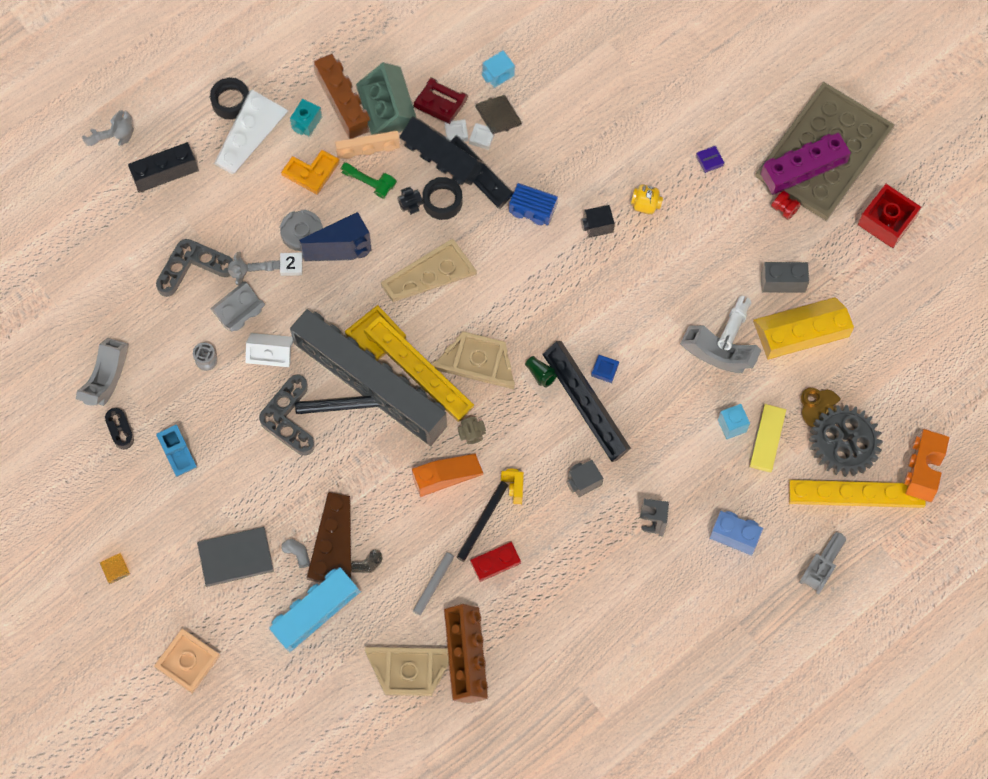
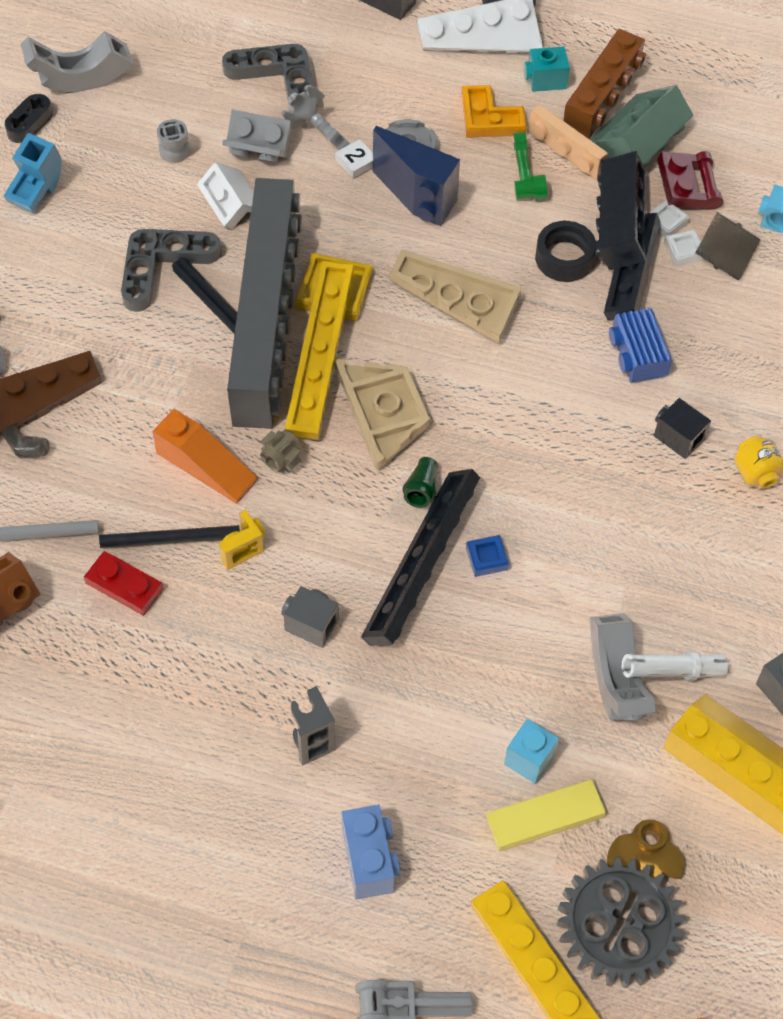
camera: 55 degrees right, 10 degrees down
(410, 200) = (532, 218): black gear -> none

